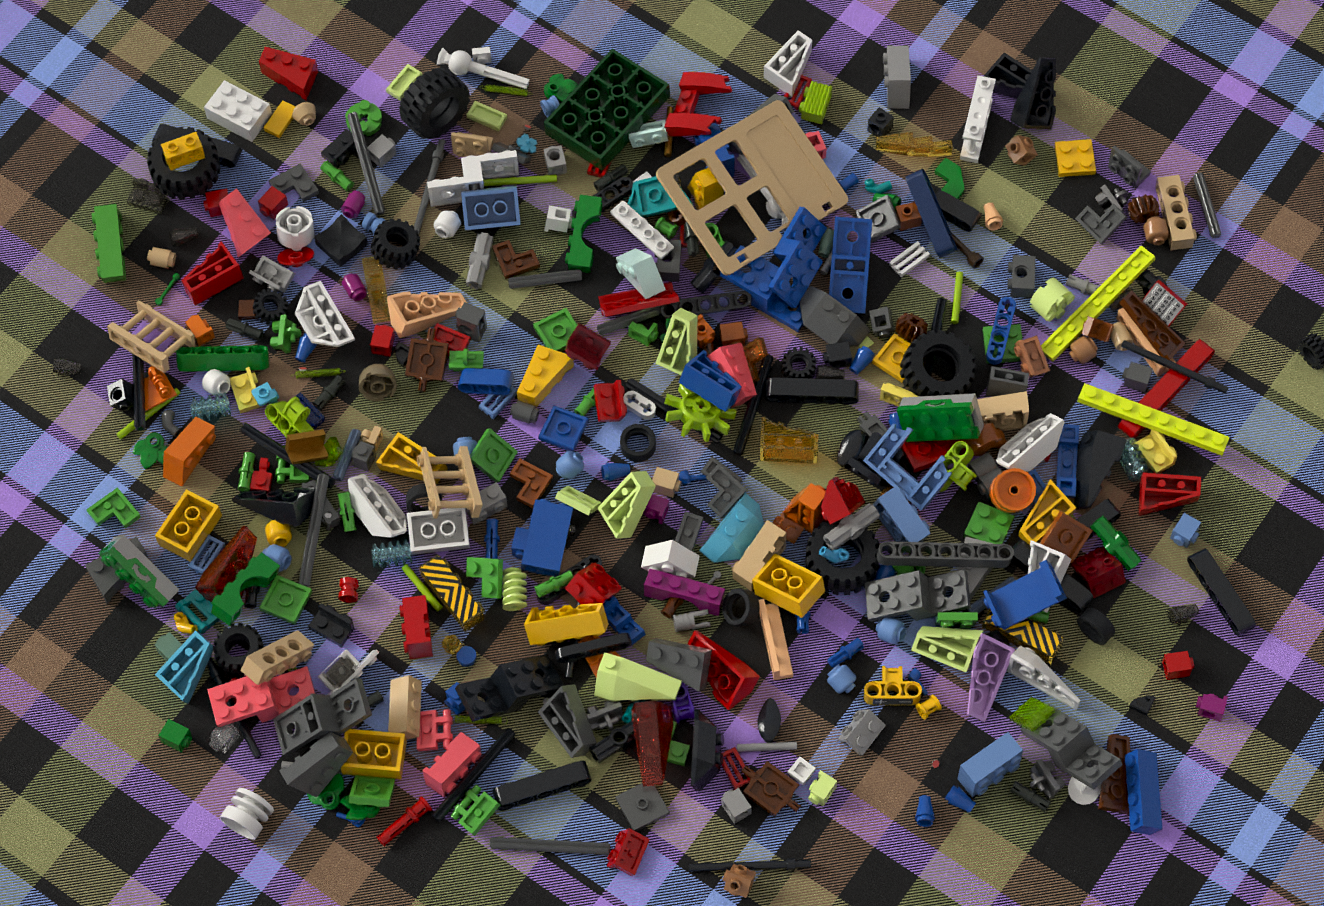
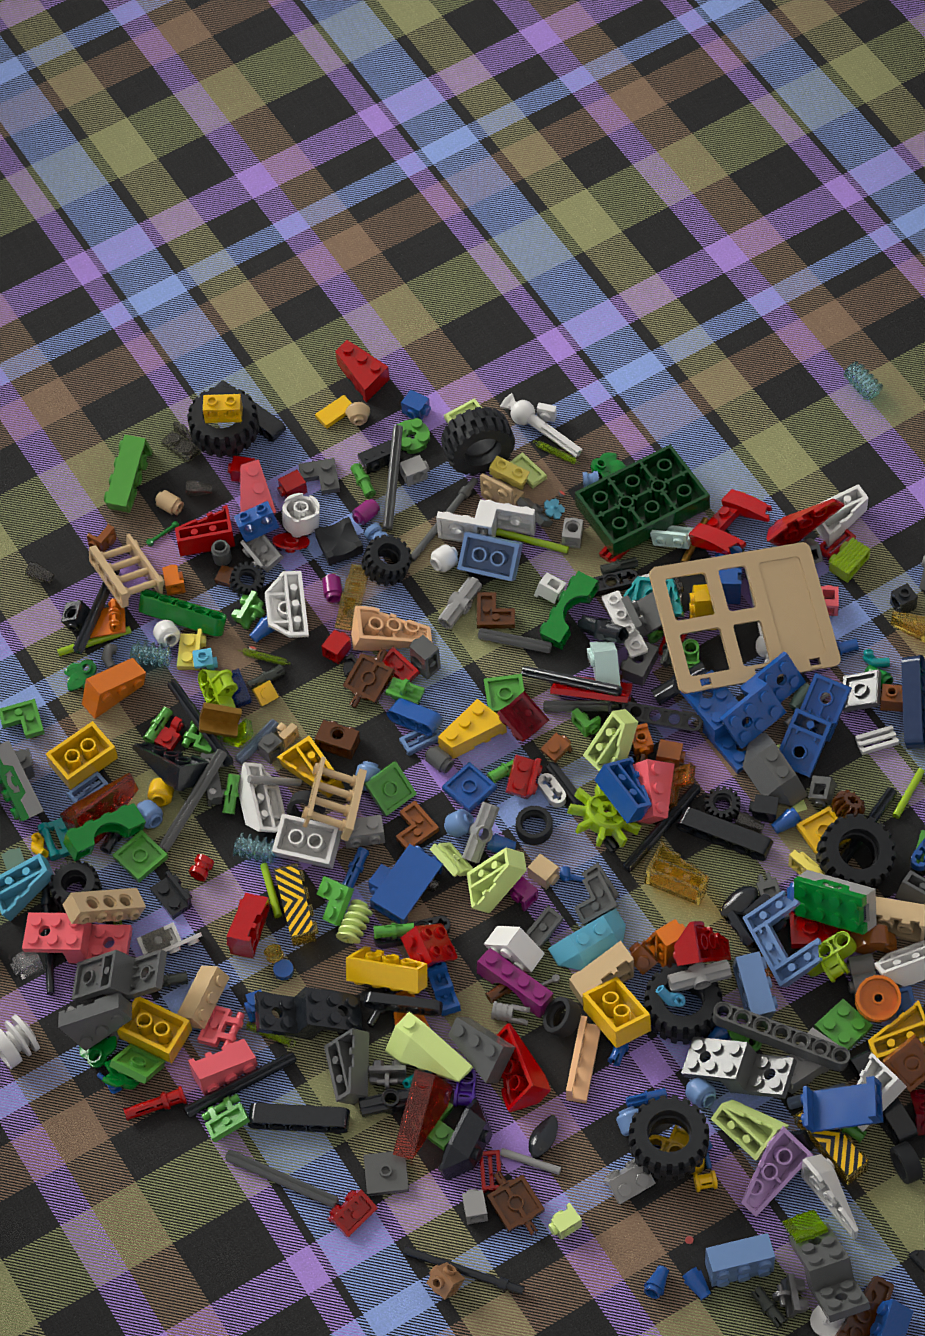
camera: 25 degrees right, 5 degrees down
(116, 312) = (104, 540): none -> dark orange bracket
(234, 289) = (221, 553): none -> dark grey brick
(238, 111) = (297, 391): white brick -> none
(244, 329) = (215, 593): pearl dark grey axle -> none
(257, 248) = (256, 521): none -> blue brick
(335, 407) = (265, 693): none -> yellow plate
(356, 88) = (415, 405): none -> blue brick
(377, 382) = (313, 683): dark tan cylinder -> none
(382, 485) = (274, 780): none -> light grey bar
(430, 432) = (343, 747): none -> reddish brown brick
(473, 123) = (509, 472): none -> light yellow bracket
(594, 466) = (476, 843): none -> light grey piece
(618, 298) = (572, 681): none -> black axle
(624, 241) = (603, 629): none -> black piece
(628, 364) = (556, 747): none -> dark orange bracket
(659, 211) = (643, 613): none -> dark grey bracket
(757, 88) = (799, 524): none -> red wedge
(801, 771) = (553, 1197): white plate -> none
(886, 656) = (669, 1112): none -> black tyre
(962, 619) = (760, 1102): bright green plate -> none

